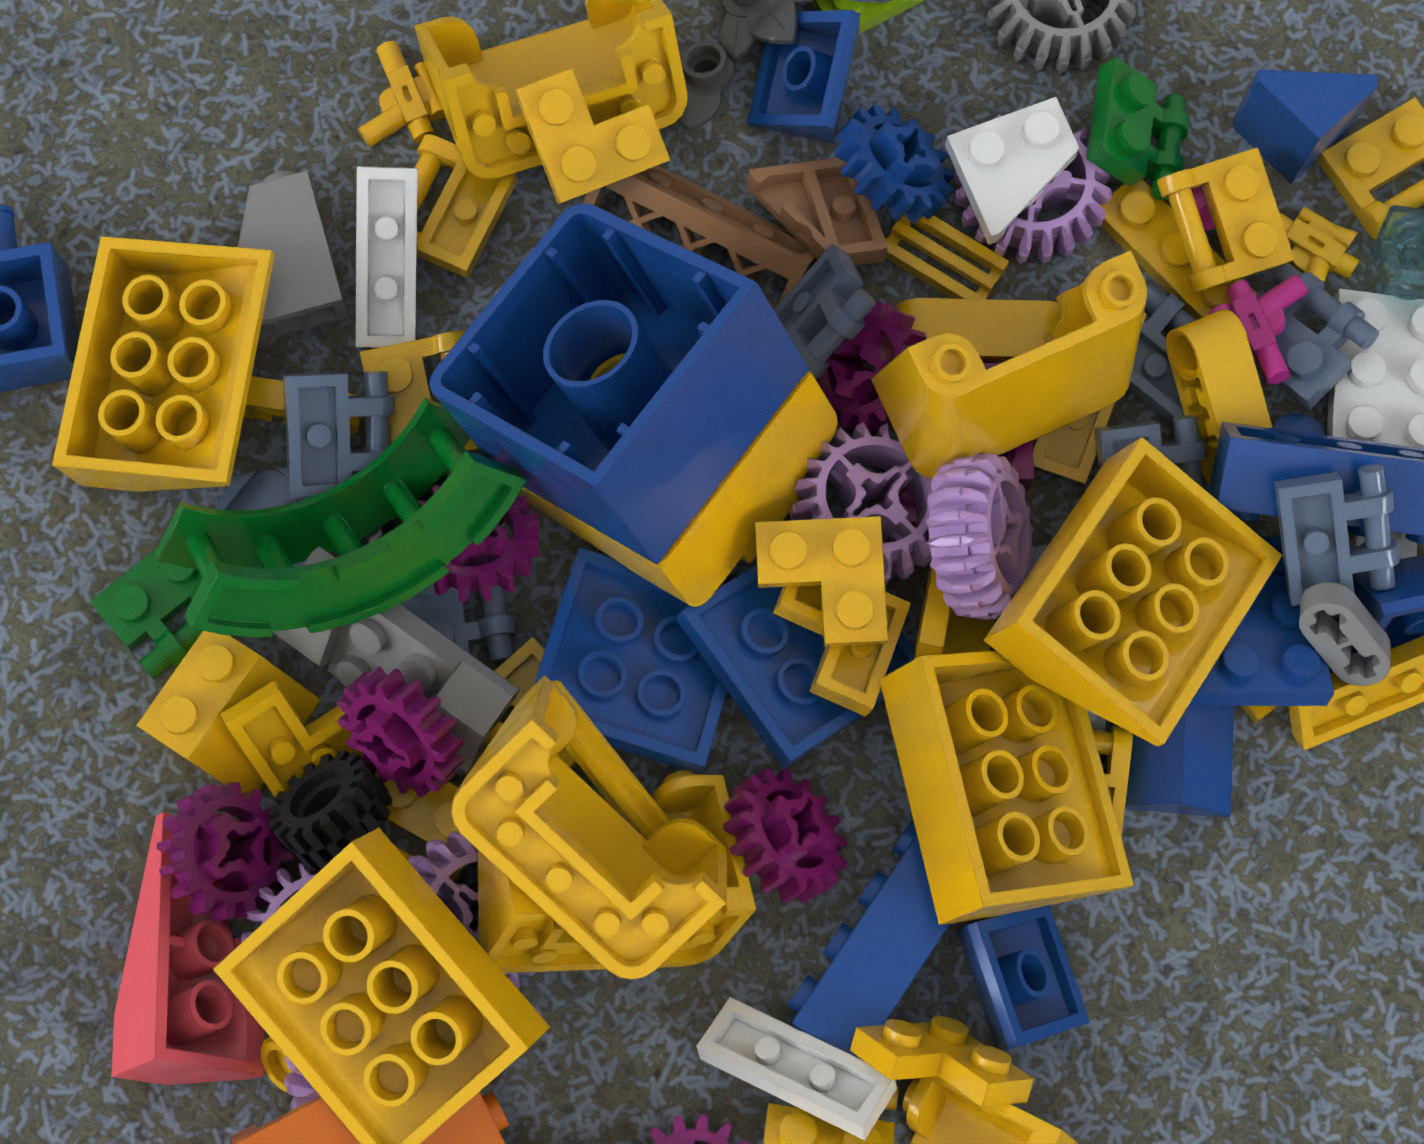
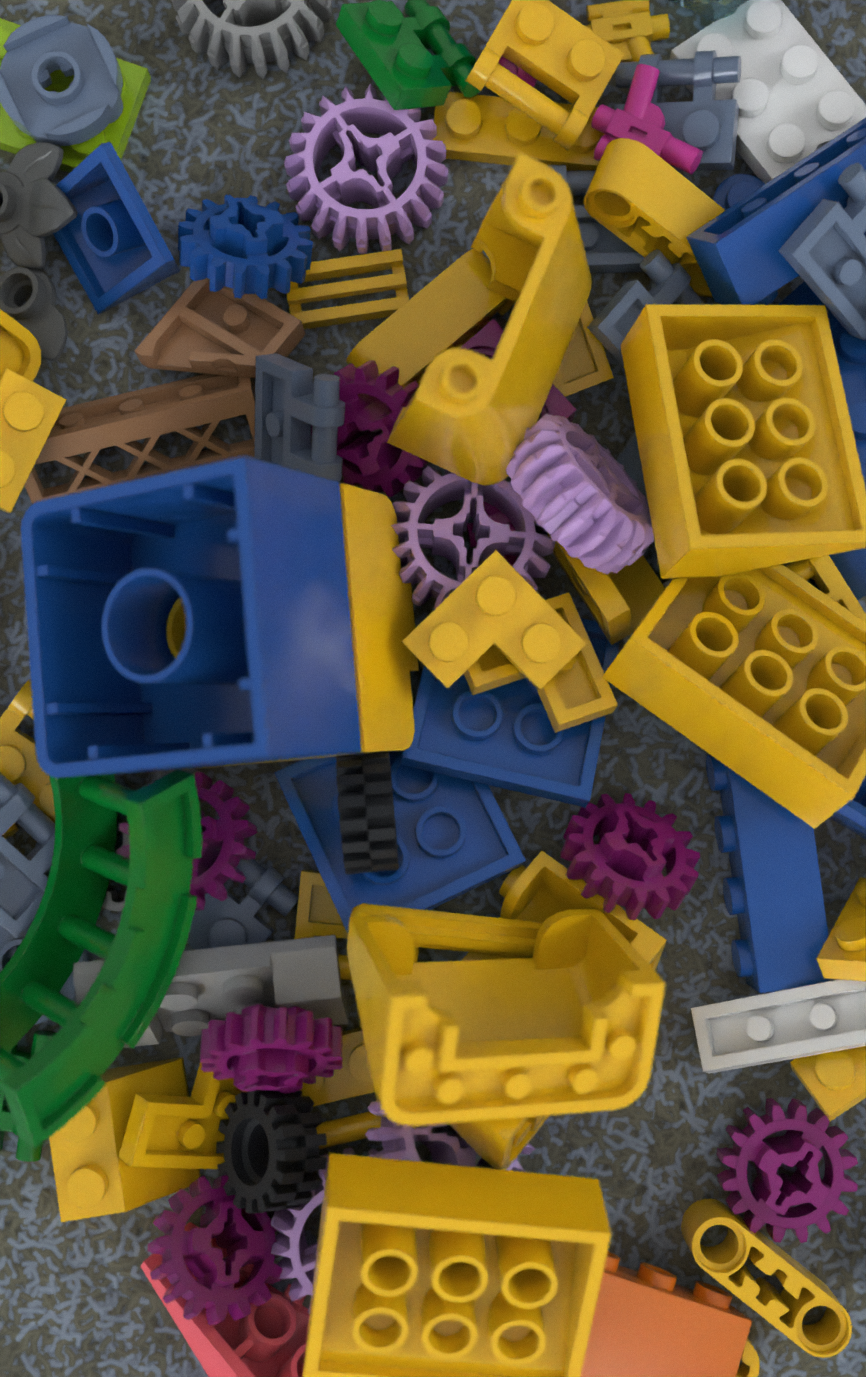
camera: 40 degrees left, 10 degrees up
(621, 621) = (366, 813): none -> black tyre
(1011, 162) = (337, 164): white wing -> none

